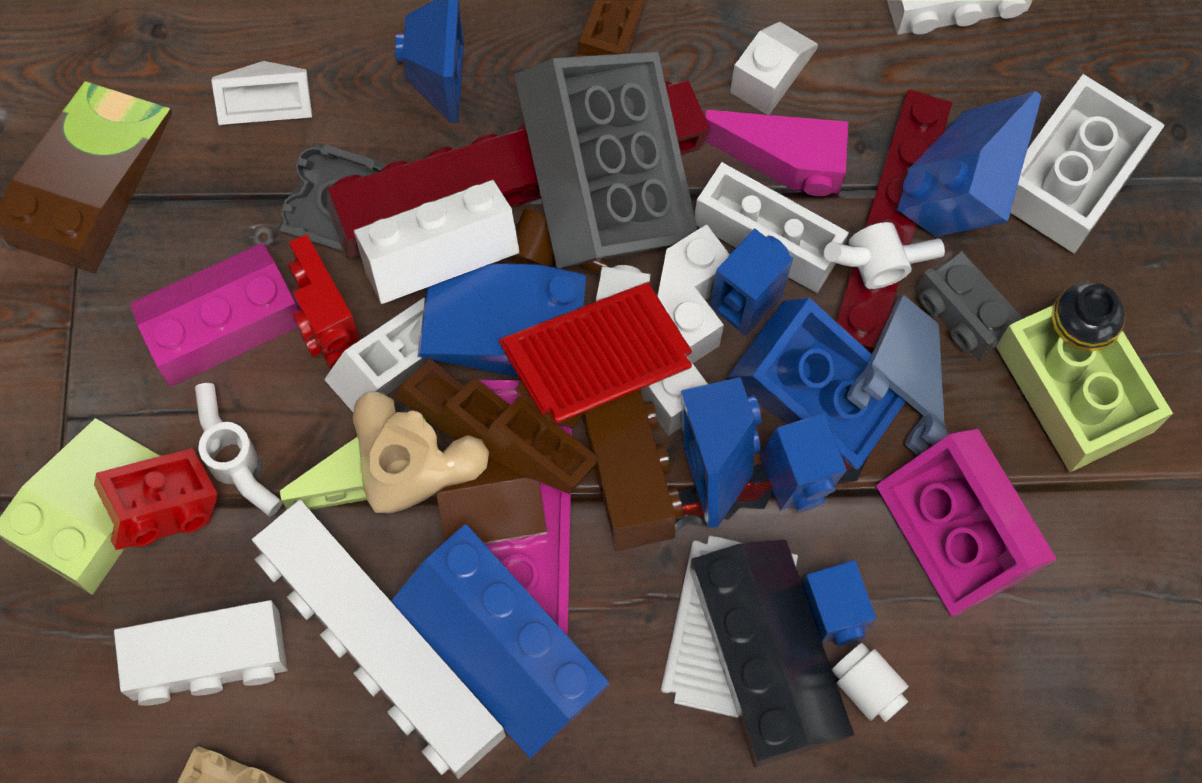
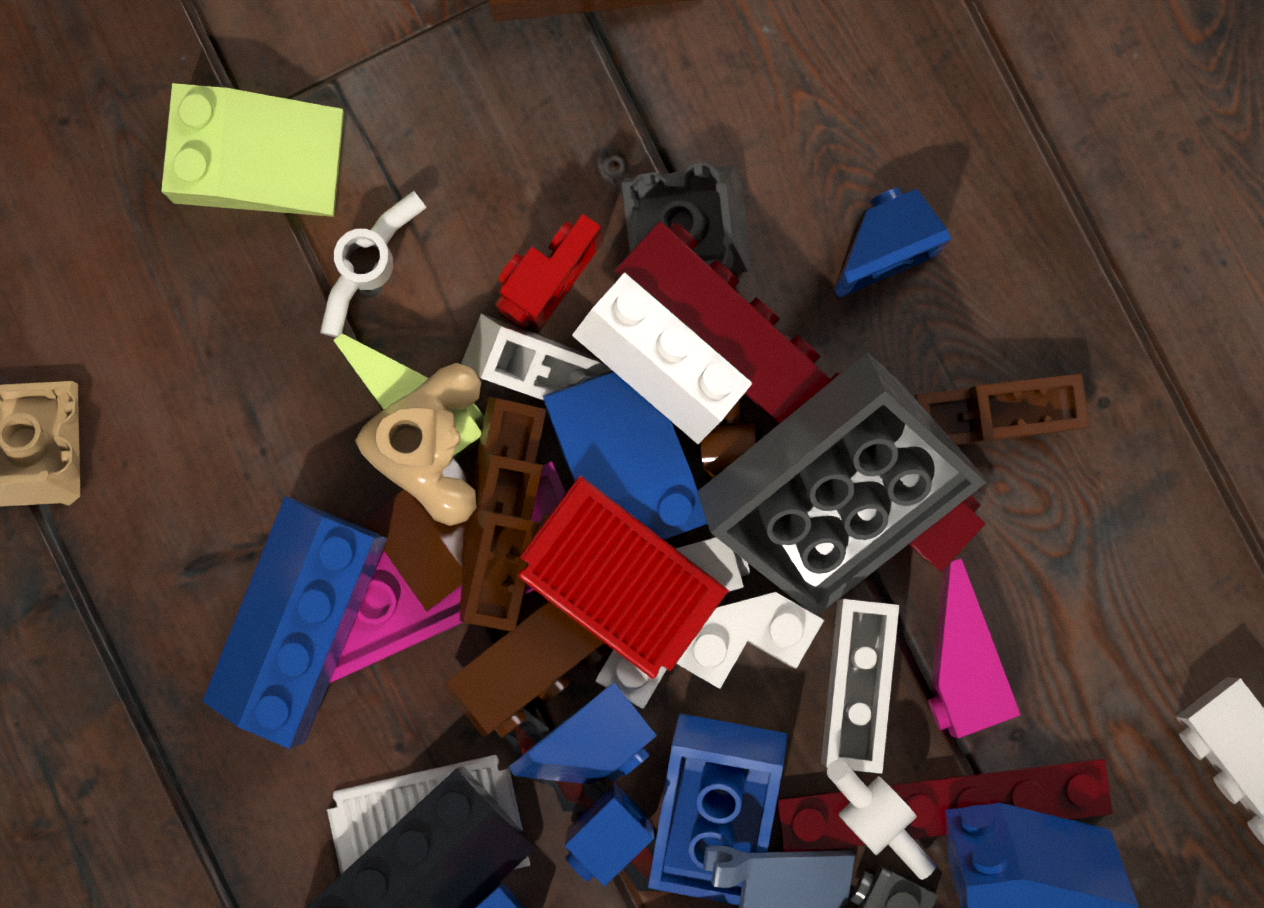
camera: 65 degrees right, 15 degrees up
(156, 498) = (281, 218): red bracket -> none
(200, 652) = (159, 340): white brick -> none
(215, 314) = (503, 163): dark pink slope -> none
(262, 94) = (767, 80): white slope -> none
(379, 639) = (255, 477): white brick -> none
(751, 281) = (786, 695): blue brick -> none
(770, 66) = (1065, 601): white slope -> none

